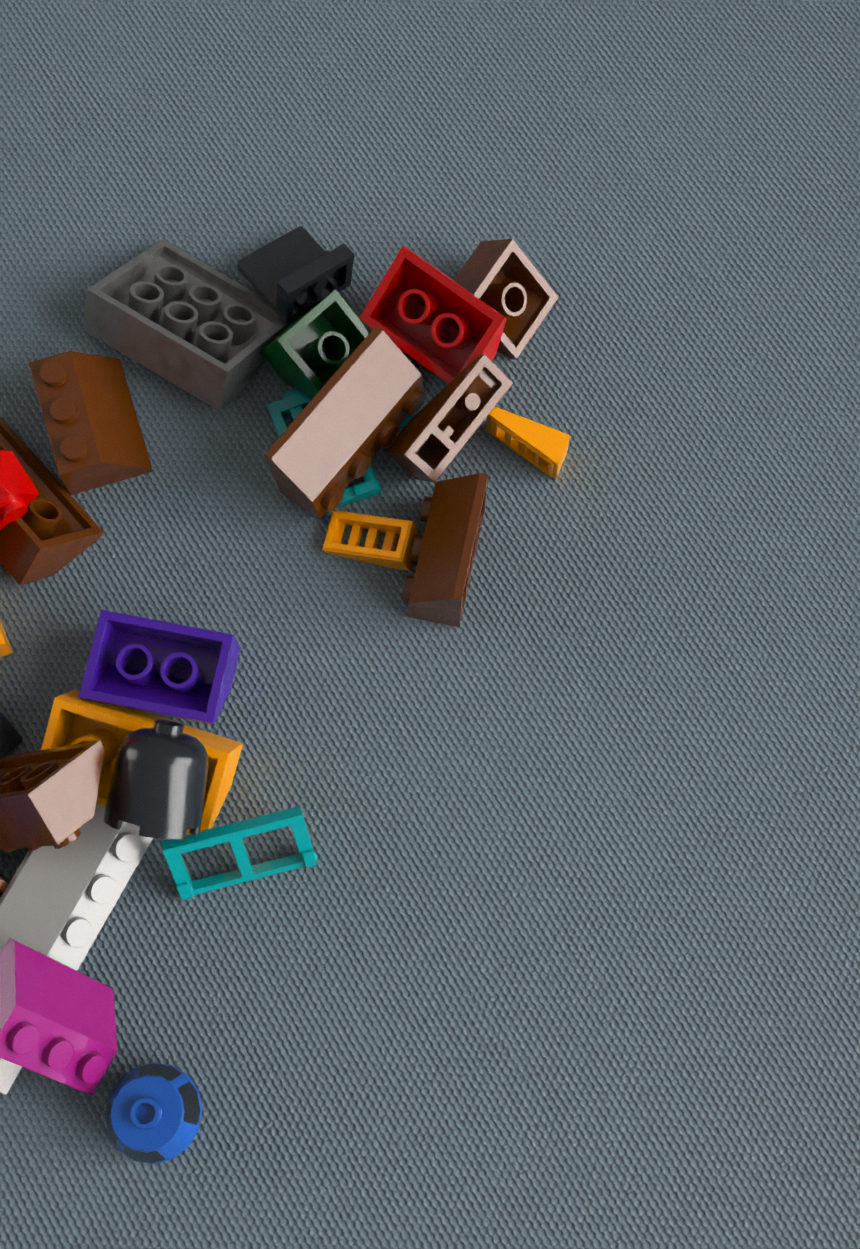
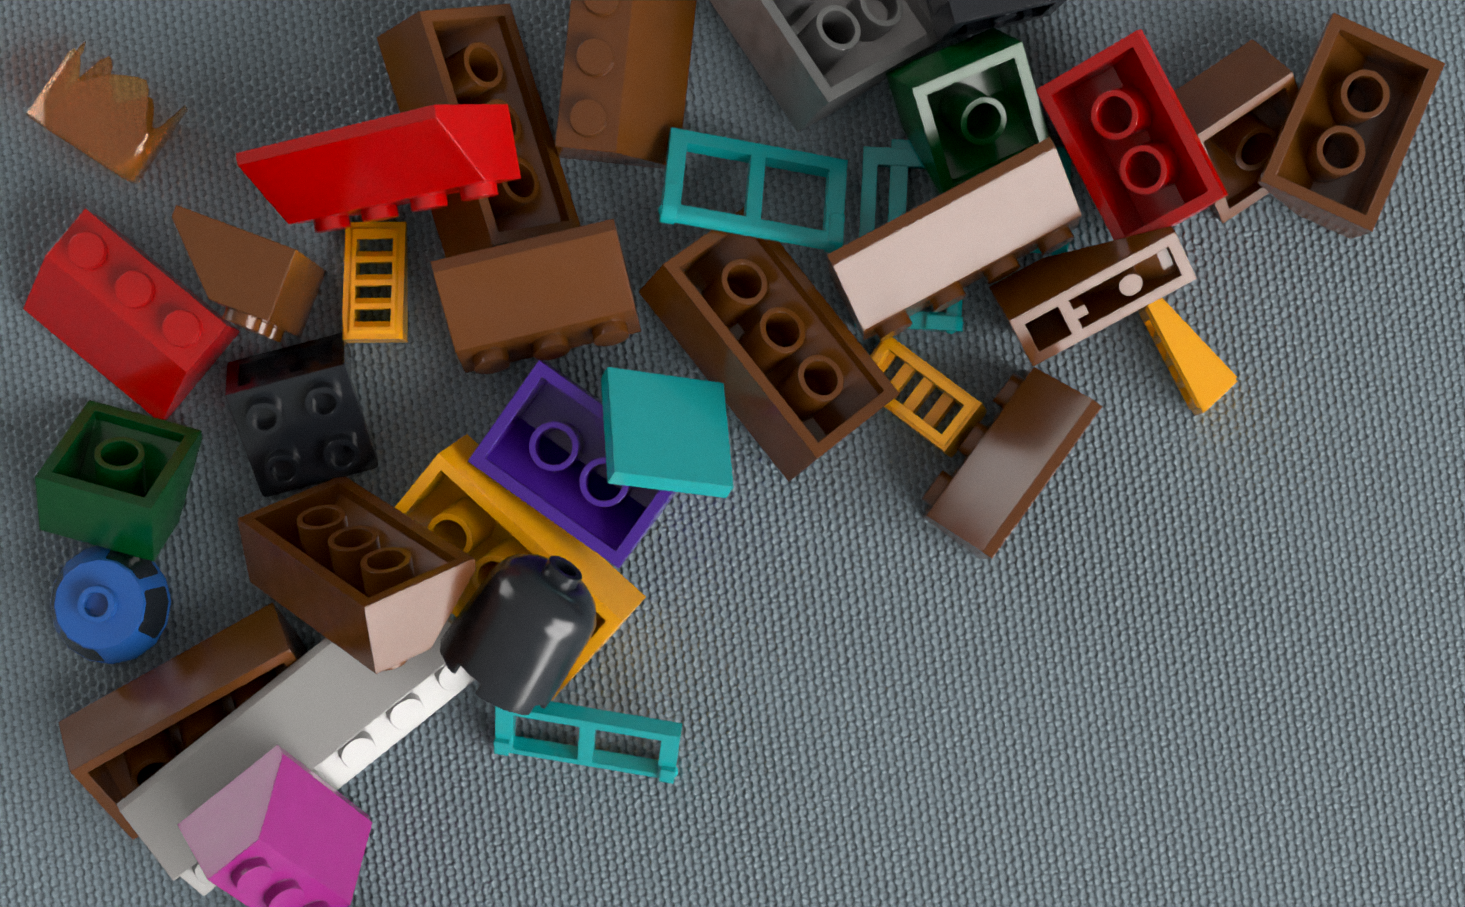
camera: 25 degrees right, 15 degrees up
(84, 569) = (537, 297): none -> reddish brown slope
(201, 438) = (757, 157): none -> teal window
(207, 618) = (666, 433): none -> teal tile
(254, 544) = (772, 342): none -> reddish brown slope
(564, 263) = (1349, 127): none -> reddish brown slope

